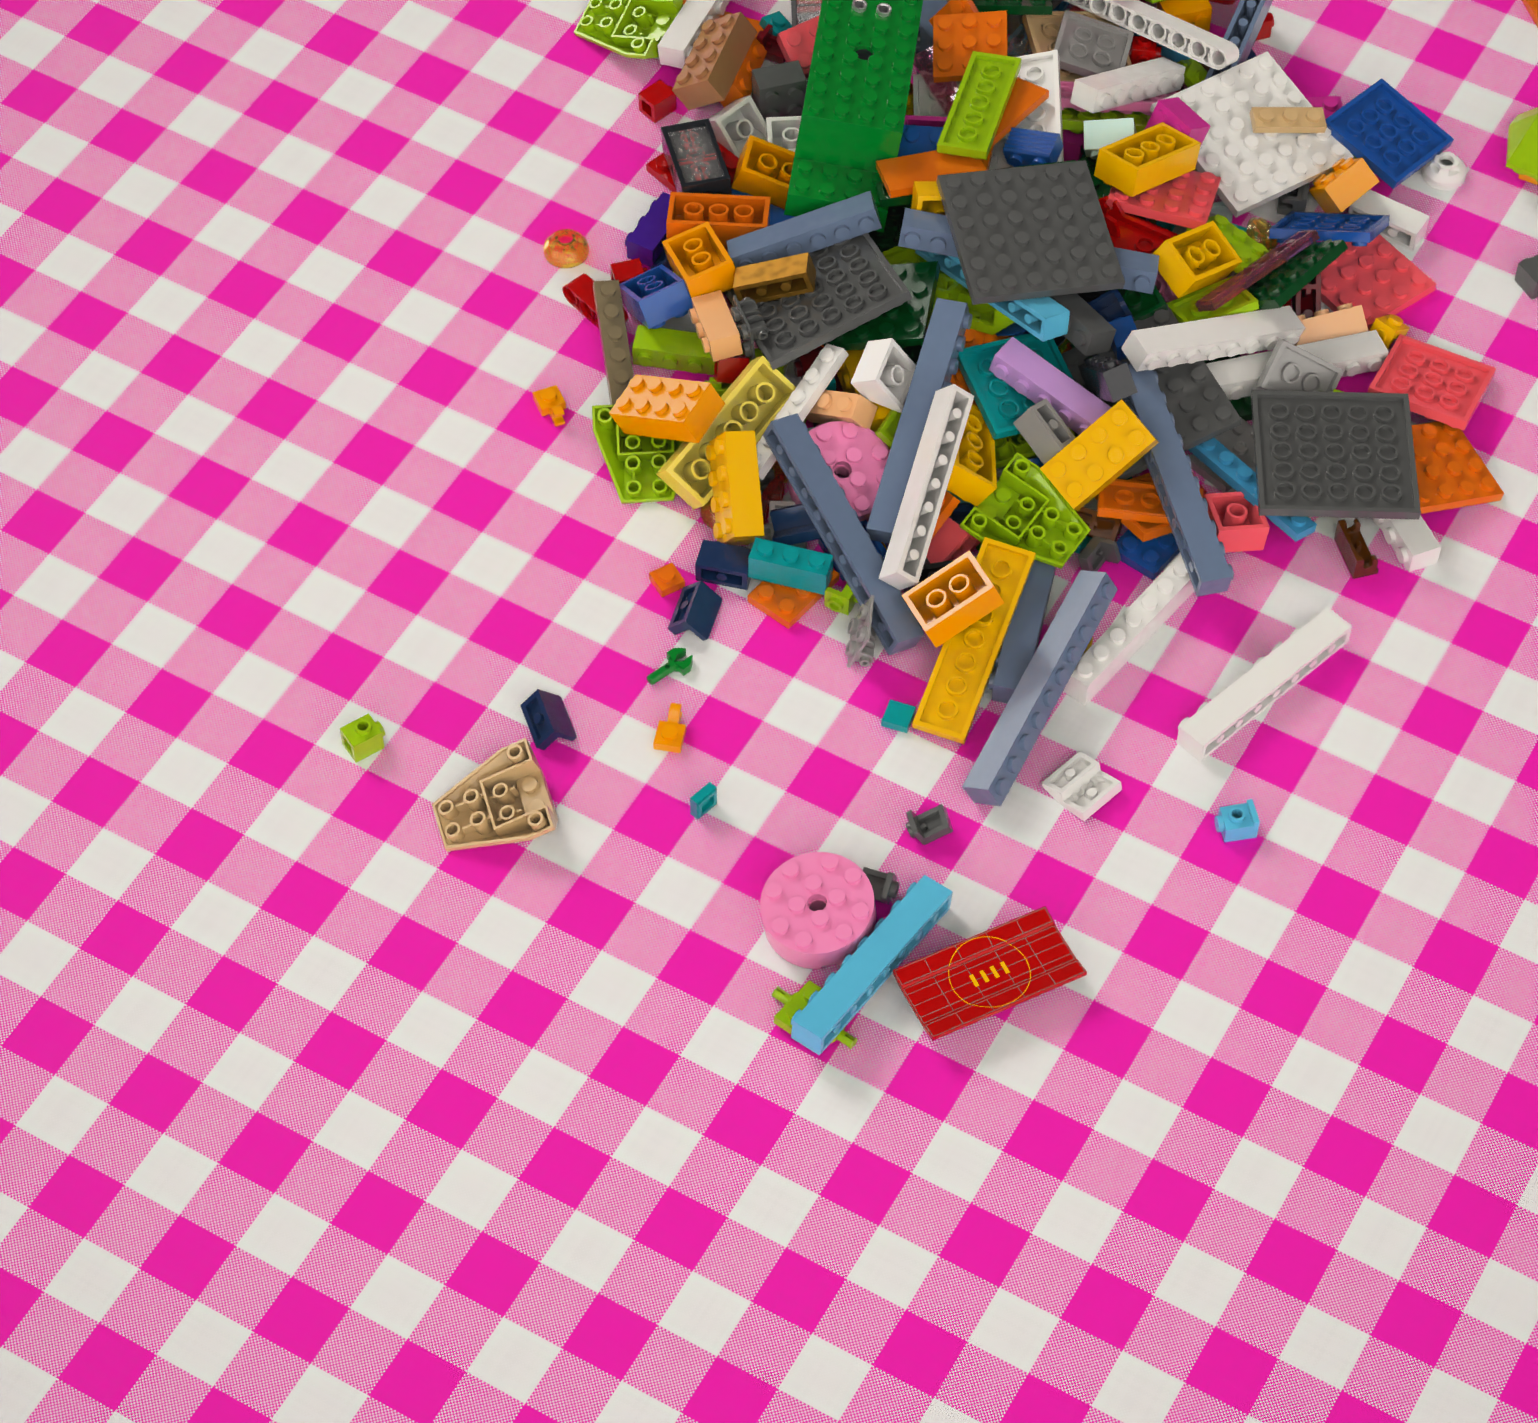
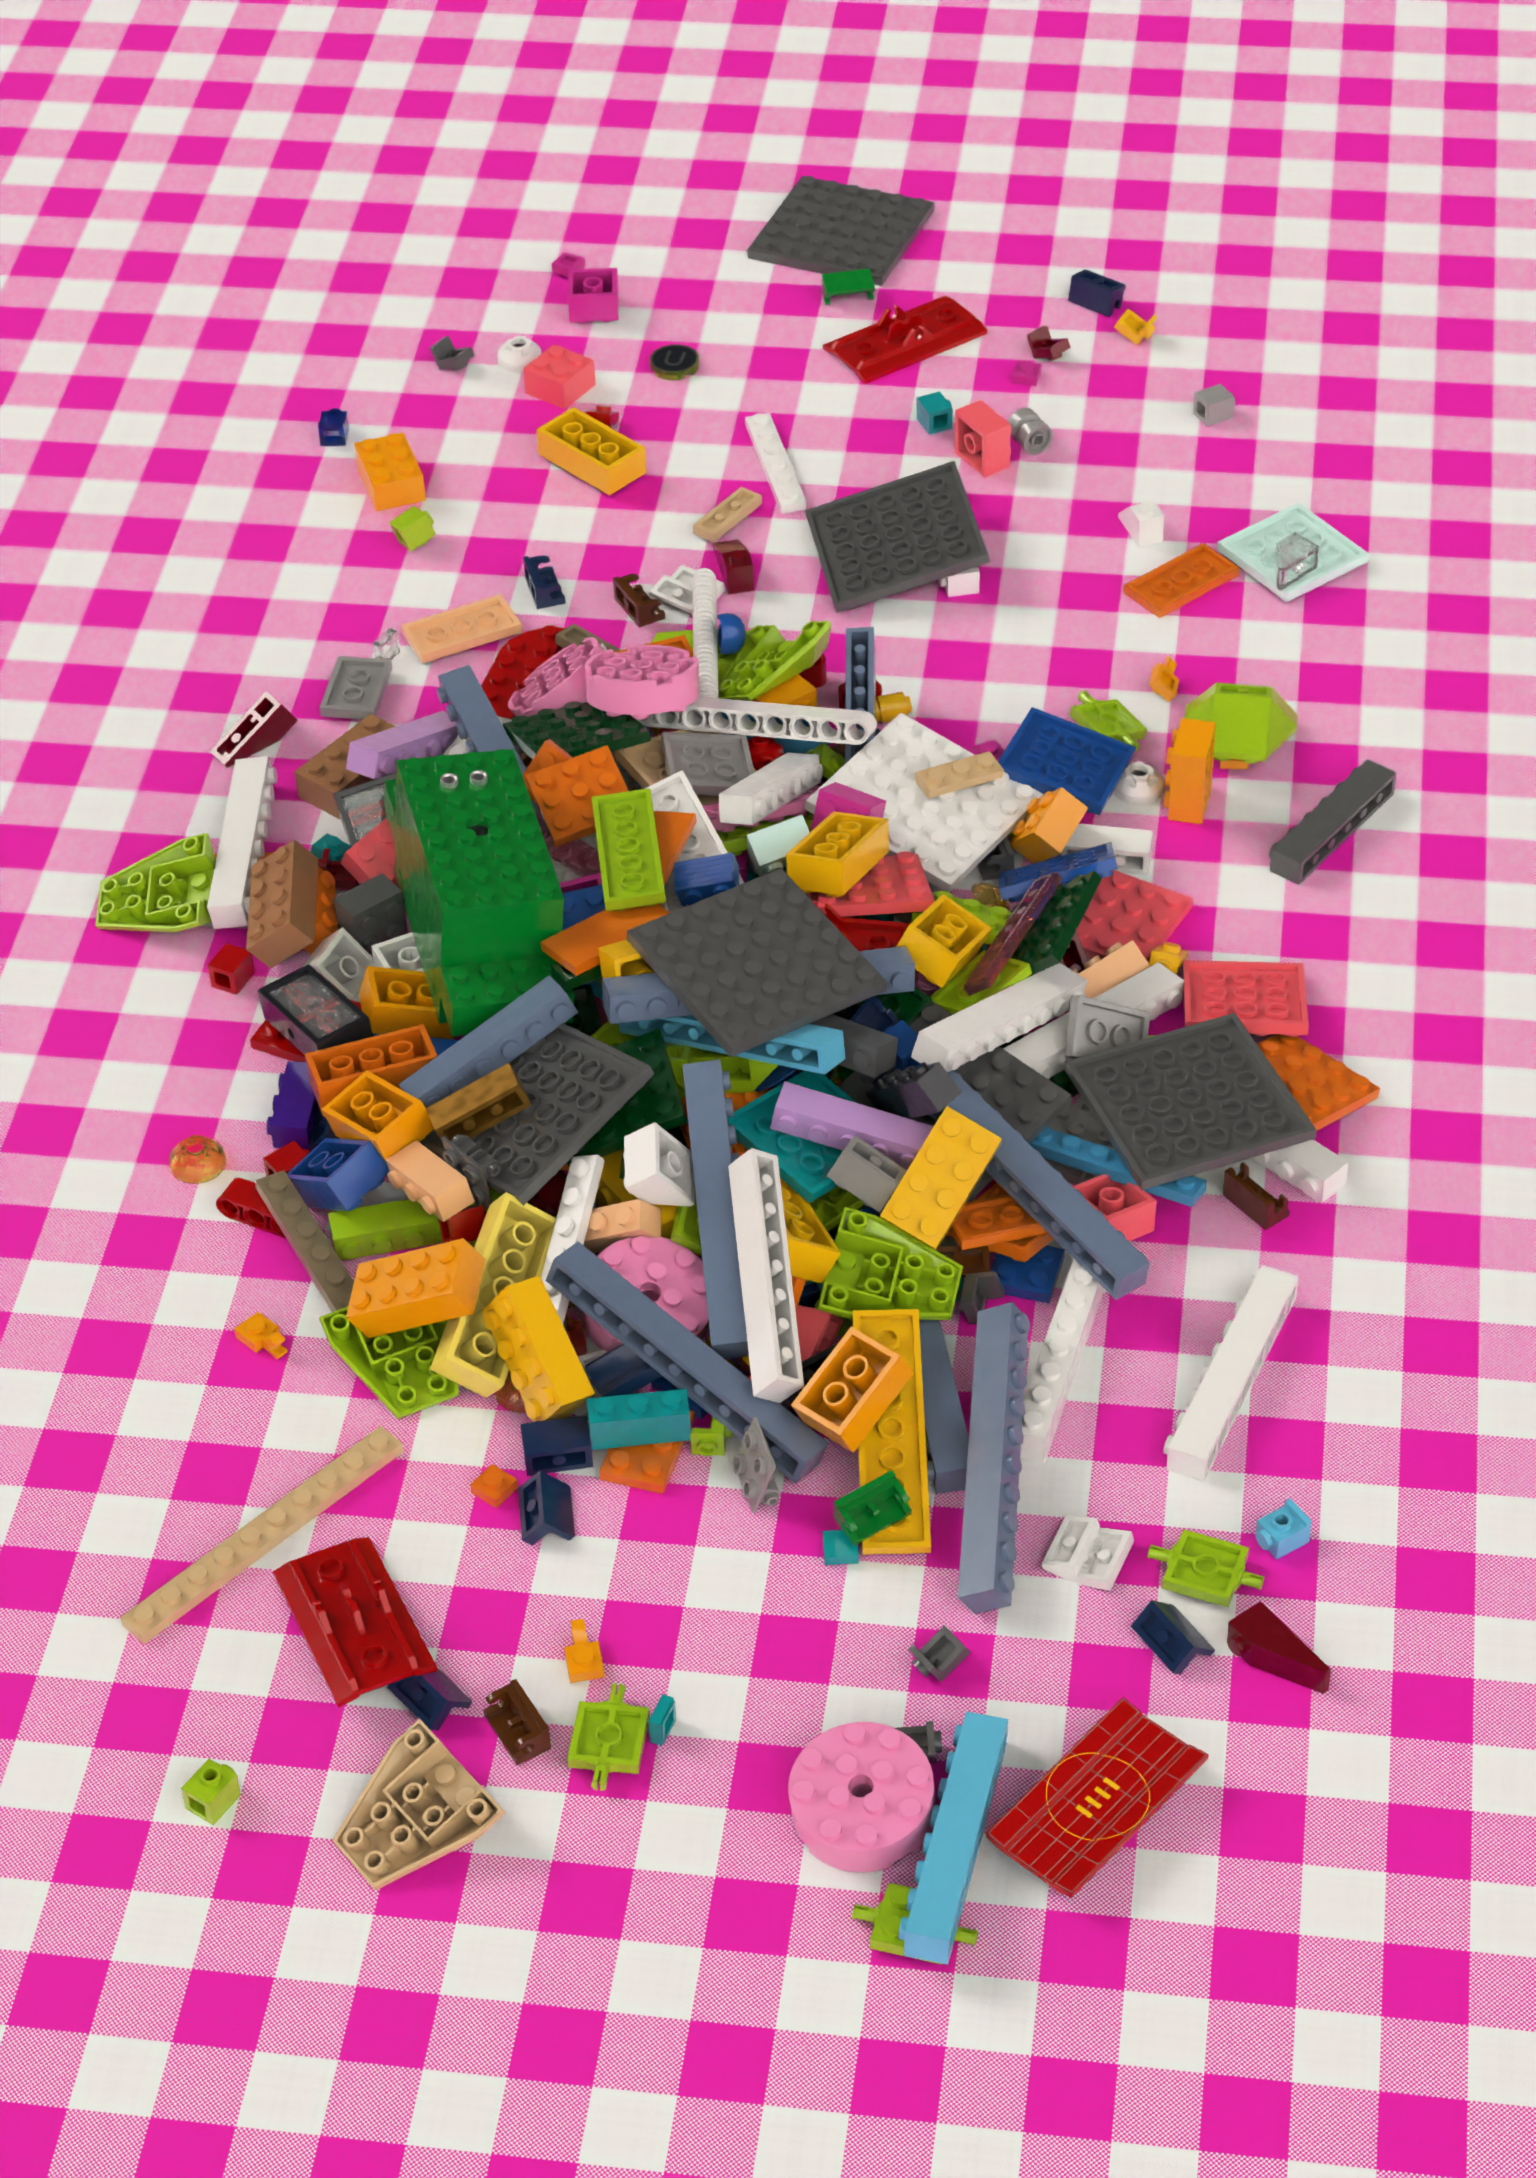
camera: 20 degrees left, 10 degrees down
(485, 558) = (261, 1535): none -> tan plate
(518, 645) = (353, 1619): none -> red hinge
(599, 765) = (517, 1723): none -> reddish brown hinge
(659, 799) = (608, 1737): none -> lime plate
(673, 665) = (547, 1580): green bar -> none
(930, 695) = (872, 1508): none -> green hinge
(1111, 871) = (1170, 1635): none -> dark blue panel
(1163, 829) = (1205, 1568): none -> lime plate
(1182, 910) = (1274, 1648): none -> dark red slope
(1274, 41) = (891, 705): none -> yellow brick
(1445, 108) = (1108, 719): none -> lime plate
(1484, 174) = (1190, 770): none -> light orange brick
(1510, 85) = (1163, 679): none -> light orange plate

